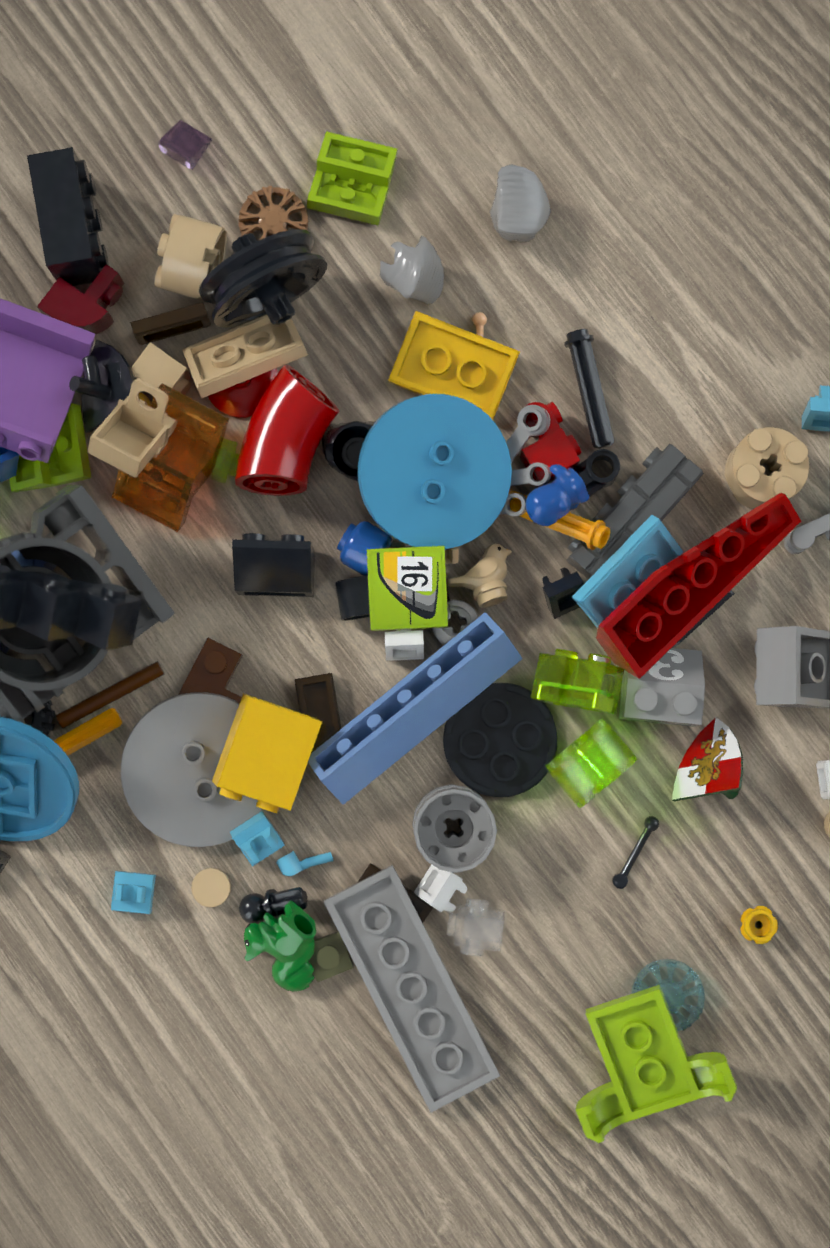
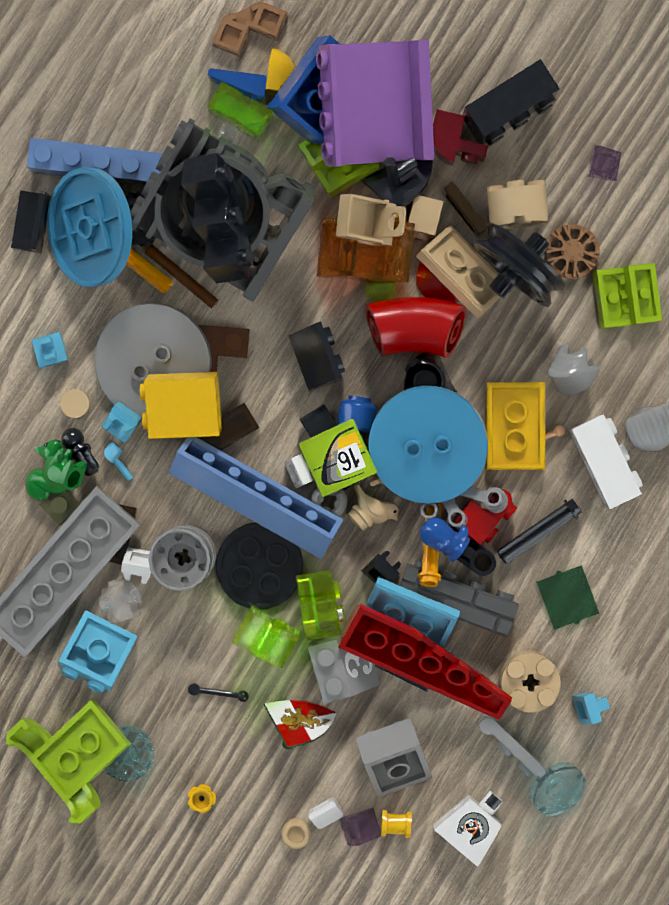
camera: 70 degrees right, 5 degrees up
(529, 983) = (96, 652): none -> medium azure plate
(538, 277) = (606, 461): none -> white brick
(682, 387) = (567, 597): none -> clear green piece

